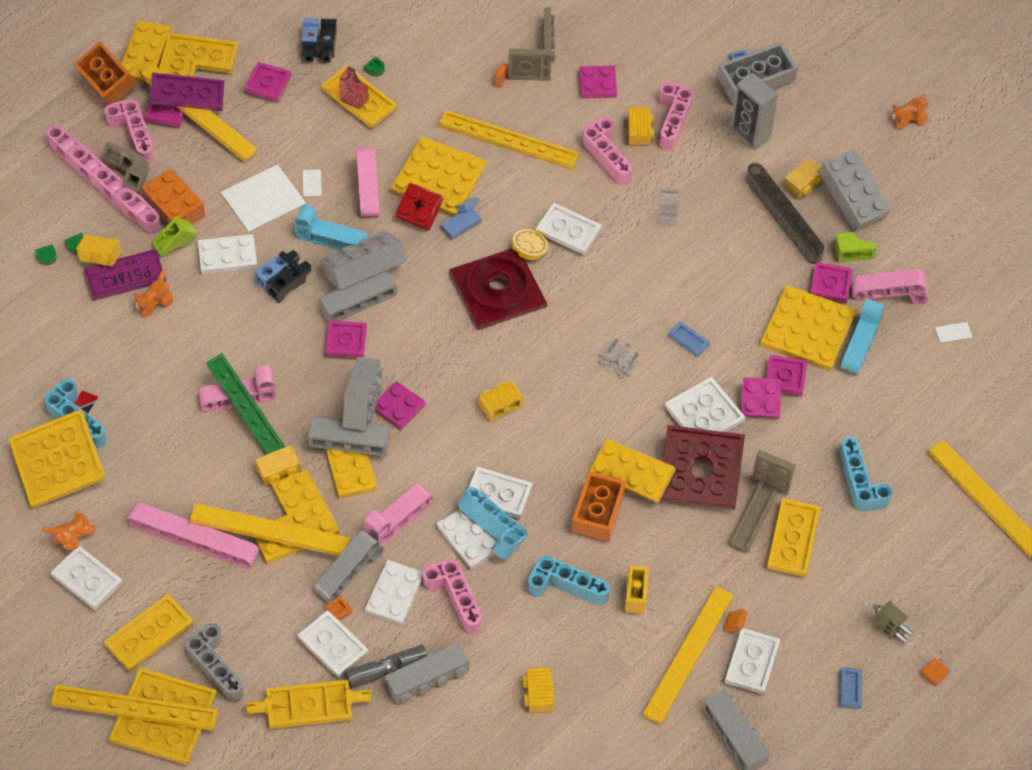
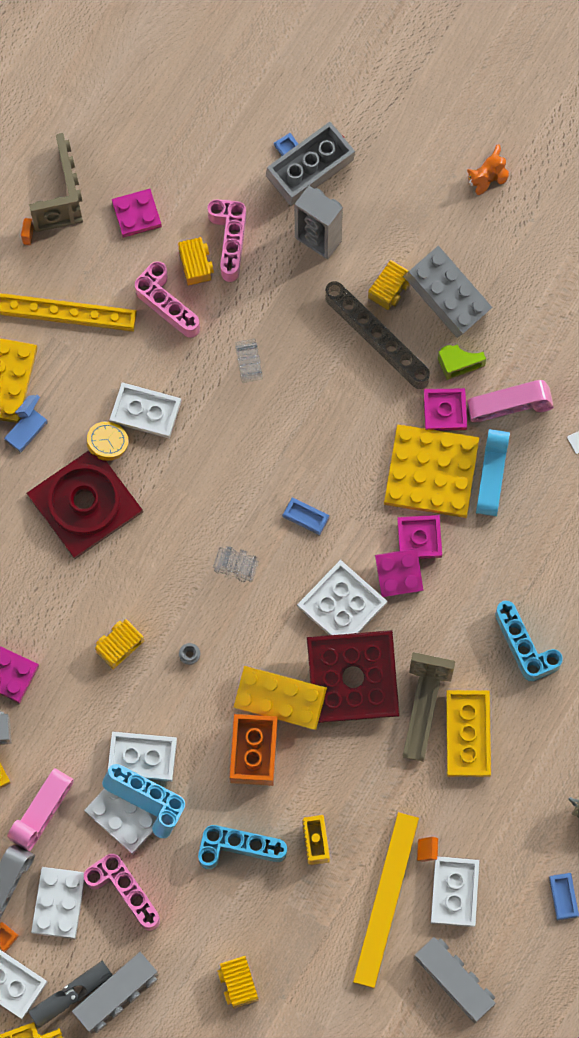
camera: 10 degrees left, 15 degrees up
(560, 417) = (189, 647): none -> light grey plate

